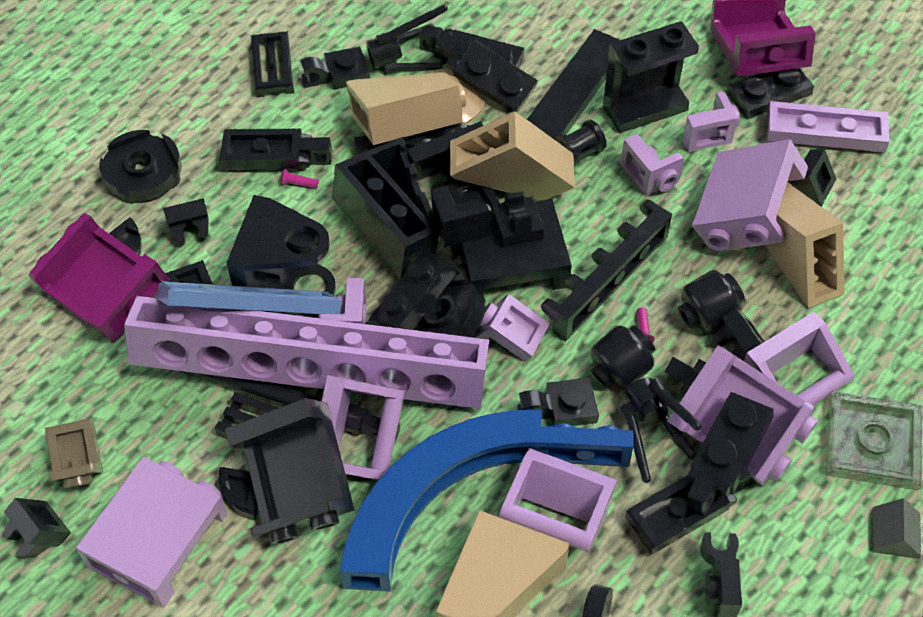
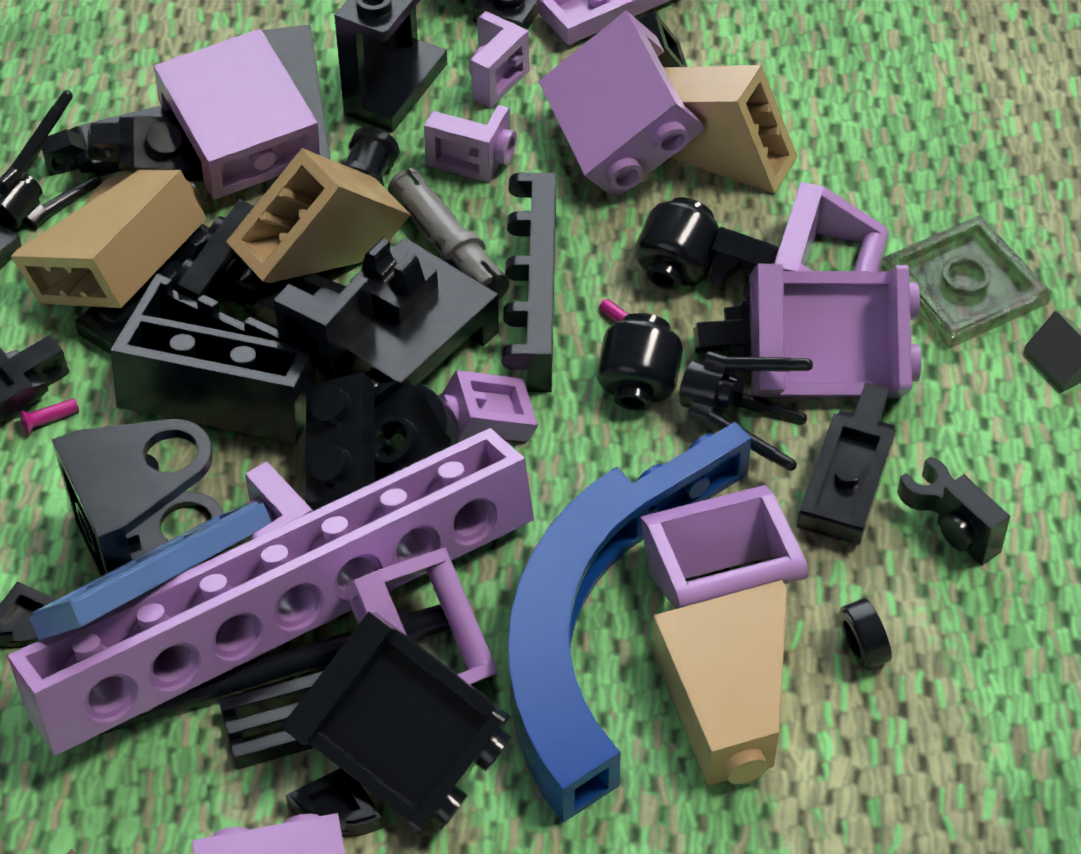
camera: 40 degrees left, 5 degrees down
(528, 70) = (237, 111): none -> lavender panel
(563, 402) = (618, 442): black plate -> none
(586, 226) = (441, 228): none -> light grey pin
(727, 450) = (849, 375): black hinge -> none

